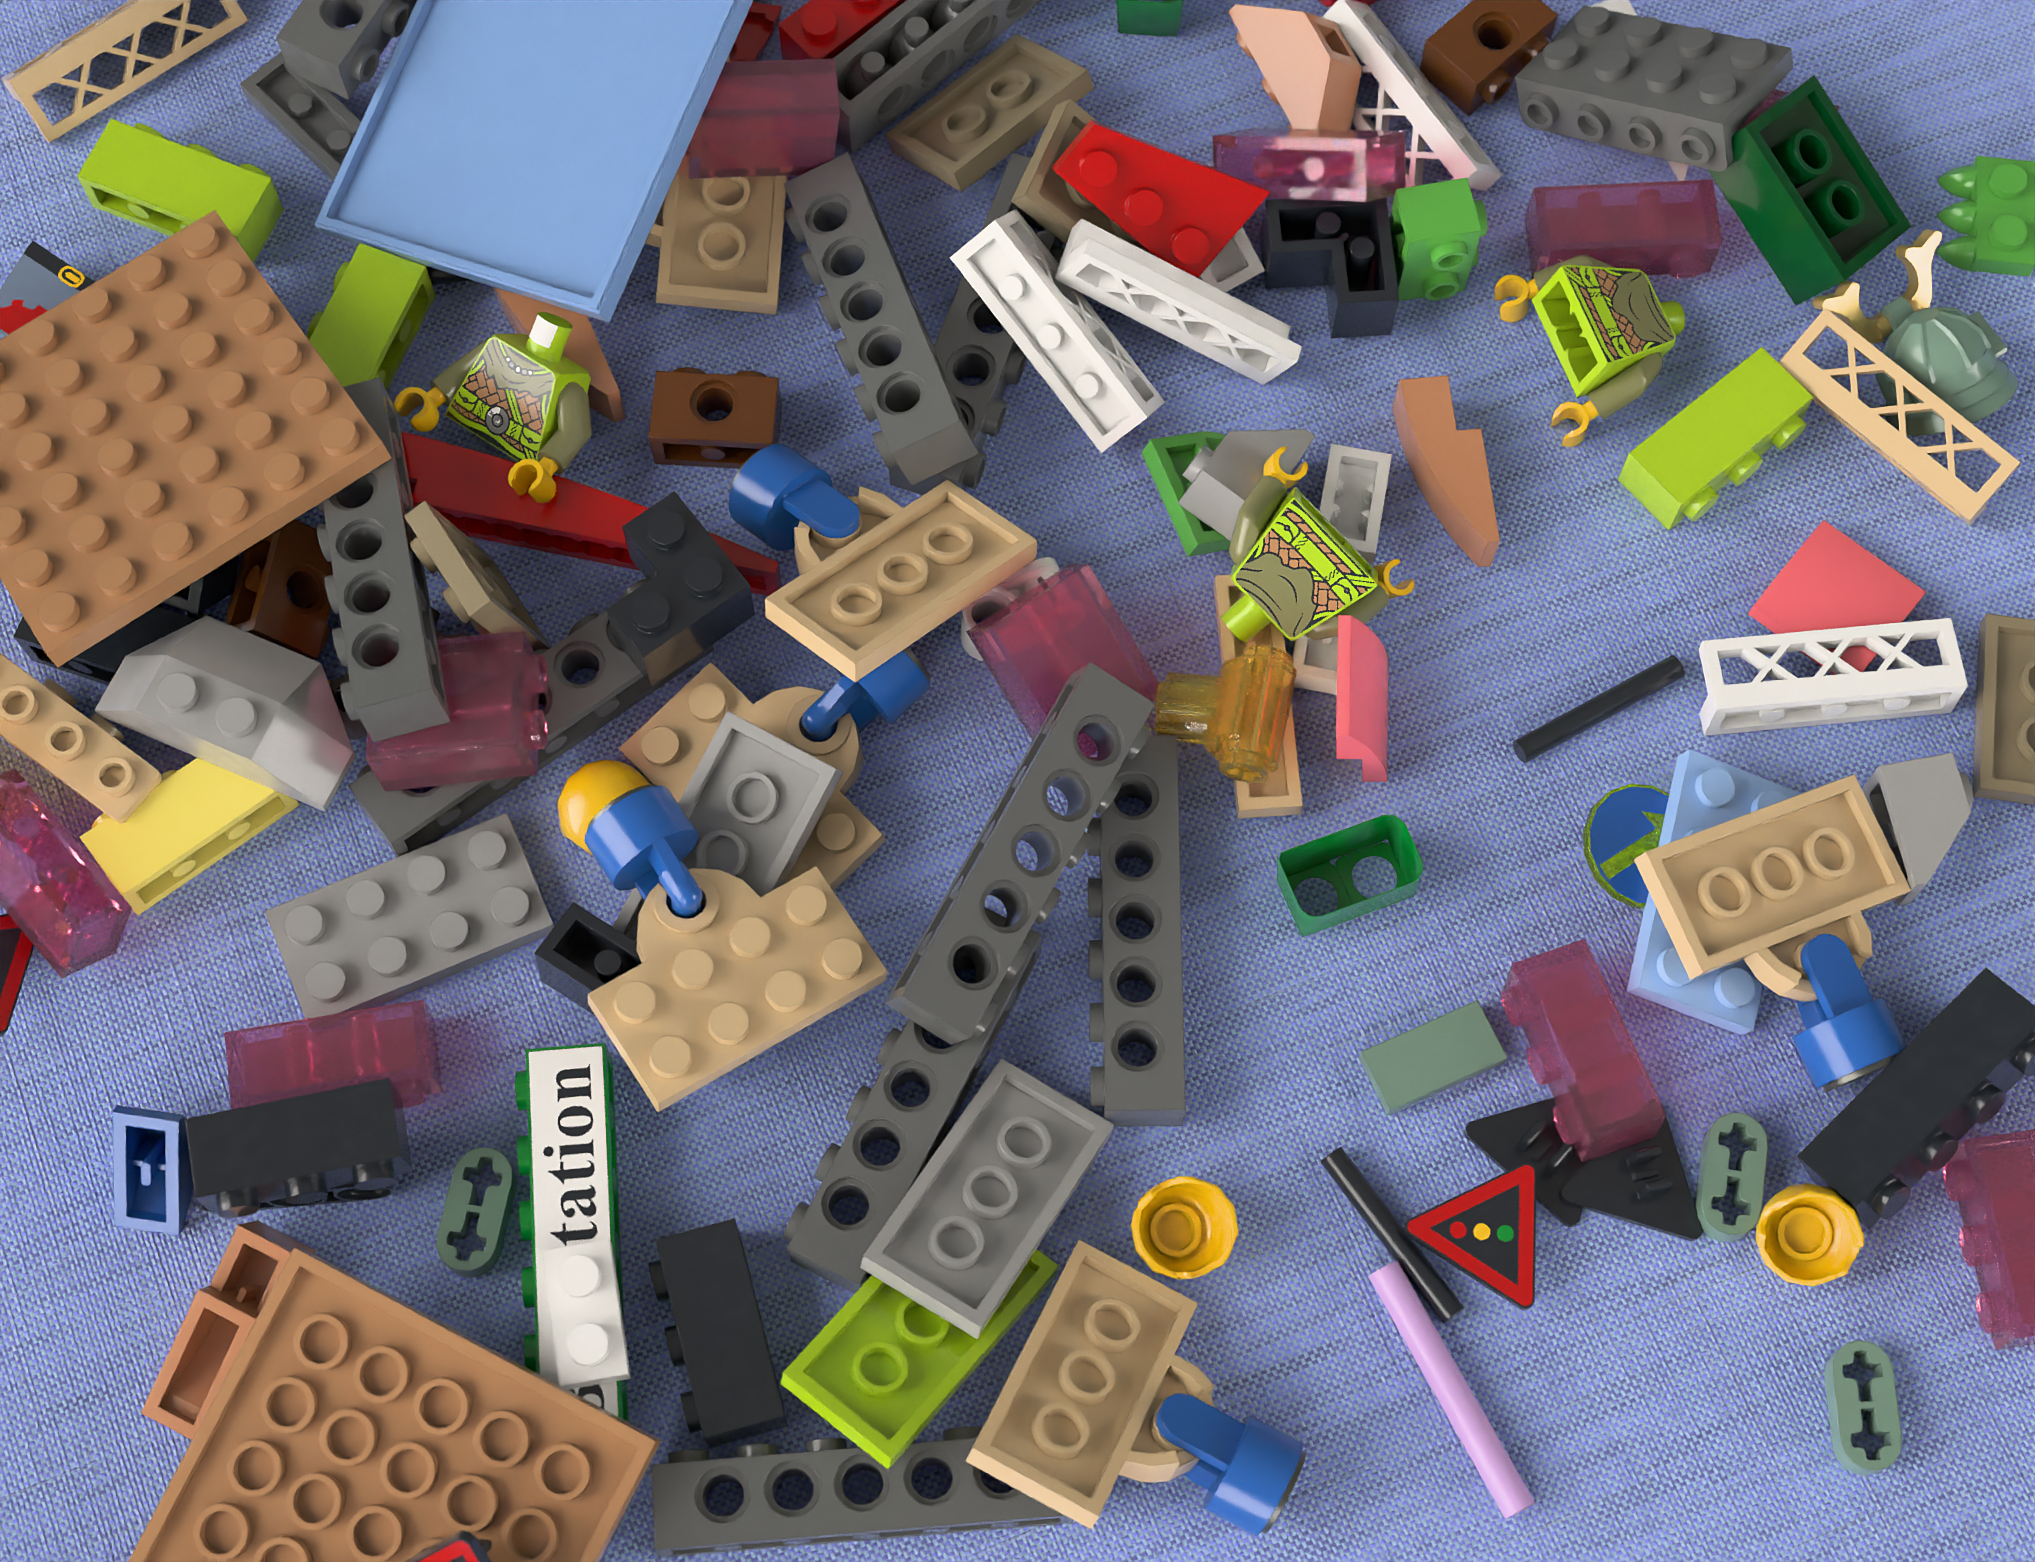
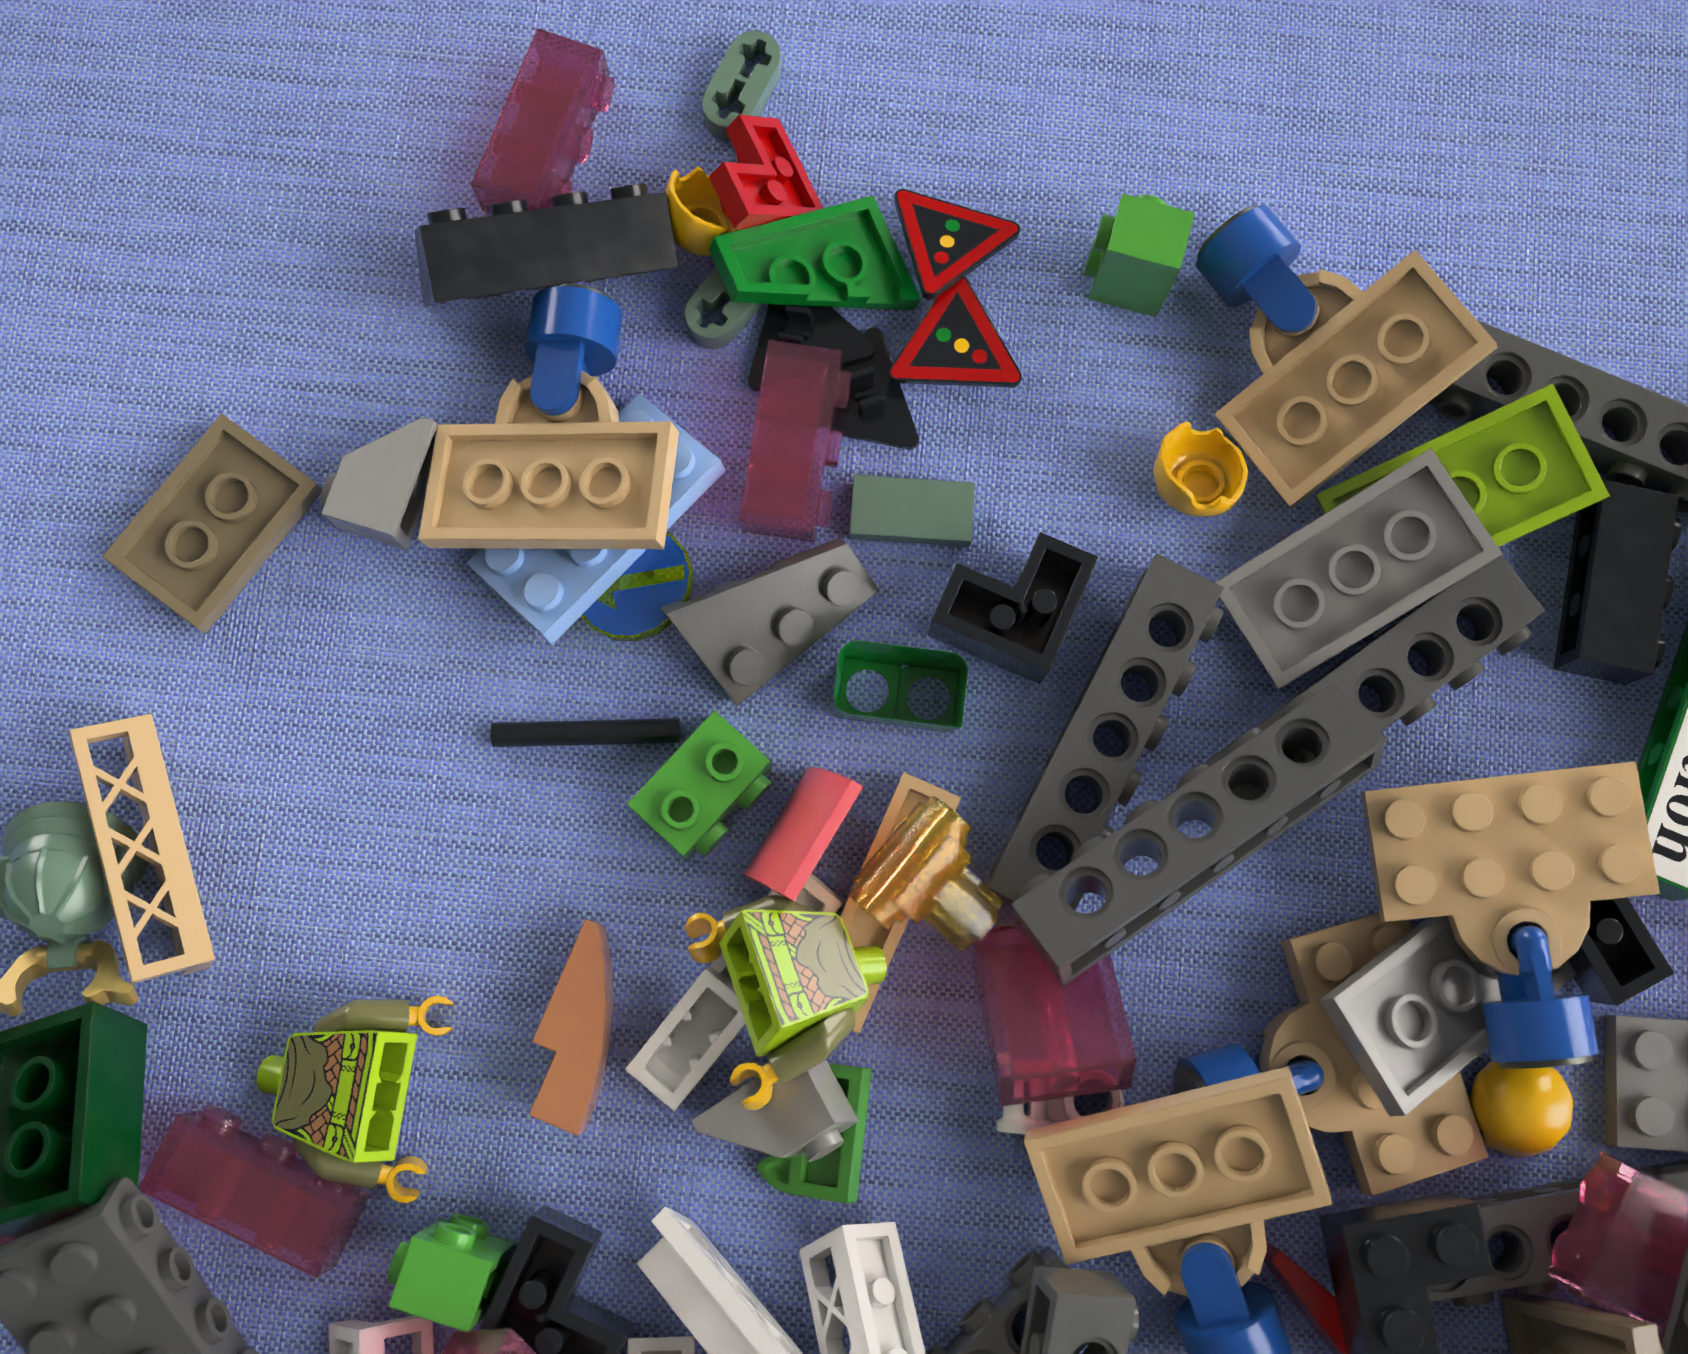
camera: 155 degrees left, 10 degrees up
(1277, 981) = (1020, 624): none -> black brick
(1365, 1406) = (1138, 253): none -> bright green brick
(1392, 1235) = (1026, 394): black bar -> none
(1451, 1390) = (1047, 257): lavender piece -> none
(1469, 707) = (703, 787): none -> bright green brick
(1499, 877) = (766, 621): none -> dark grey wing
(1558, 1336) = (948, 239): none -> piece
(1671, 1243) = (817, 259): none -> green wing
(1716, 440) = (314, 921): lime brick -> none
(1754, 1302) = (768, 176): none -> red plate
(1831, 698) = (389, 628): white fence -> none
(1835, 586) = (316, 713): coral slope -> none

